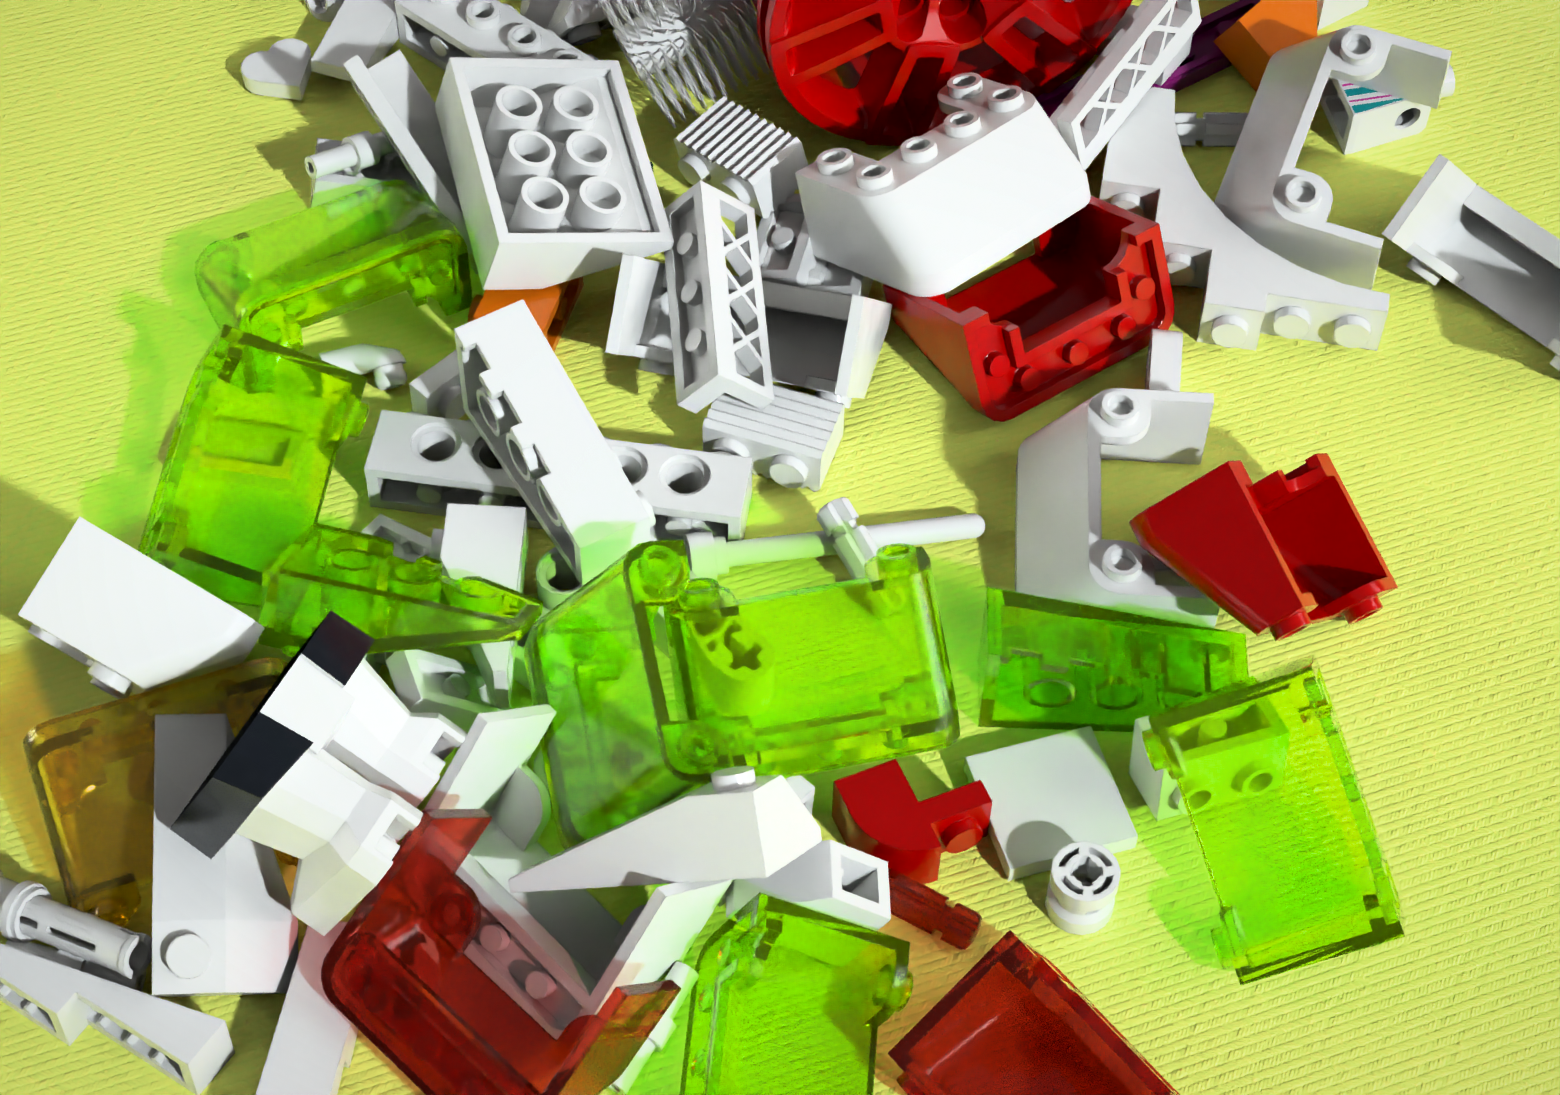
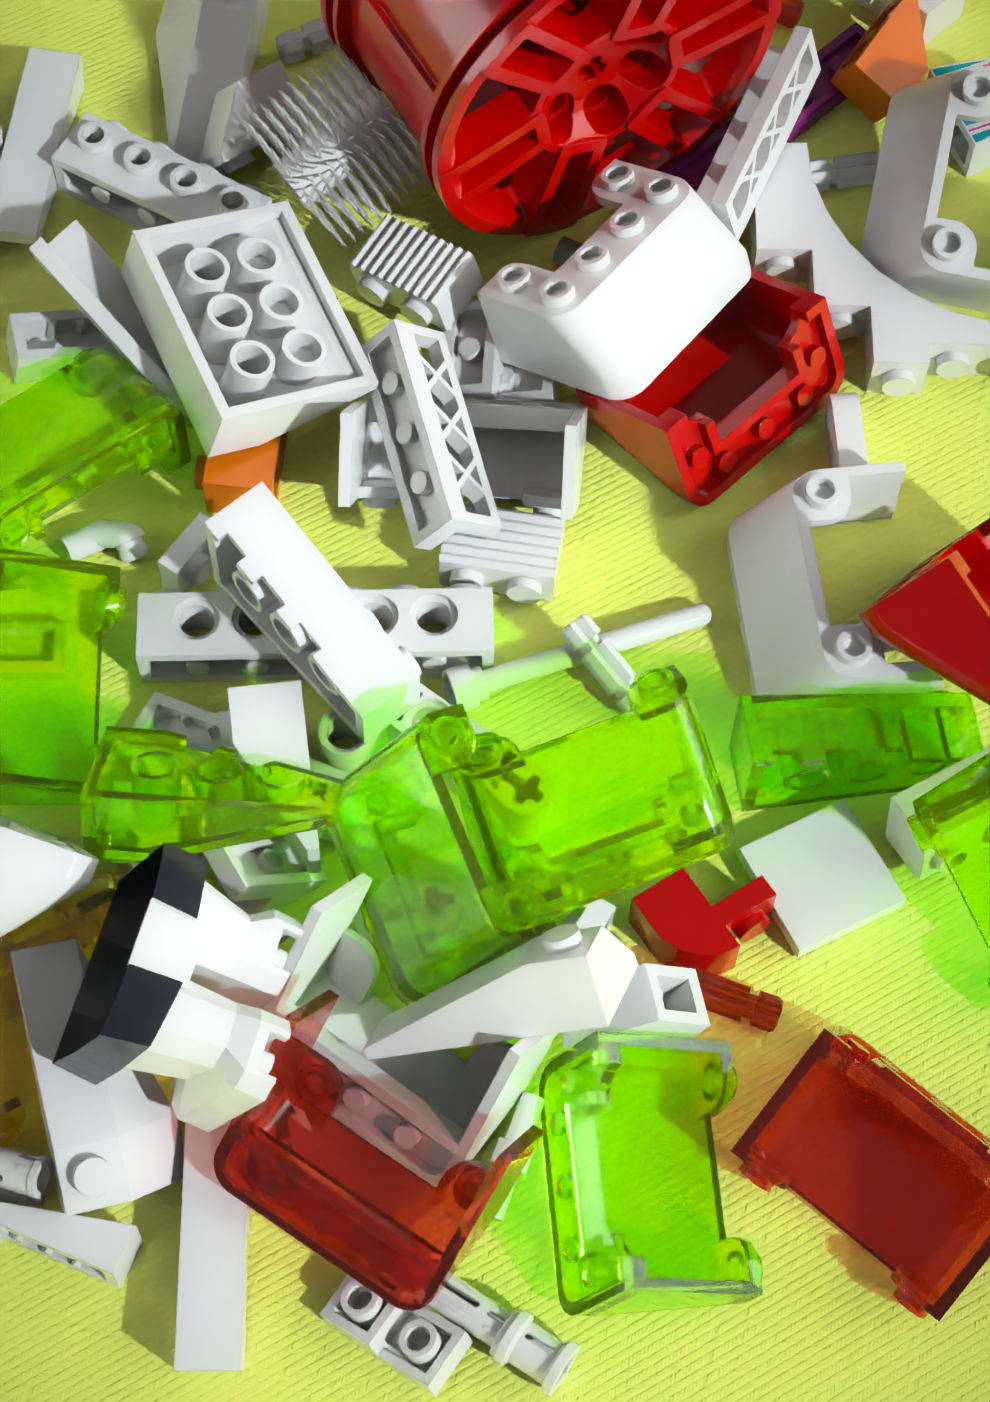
camera: 10 degrees left, 10 degrees up
(355, 152) = (49, 325): white bar -> none
(1070, 896) = (864, 972): white wheel -> none

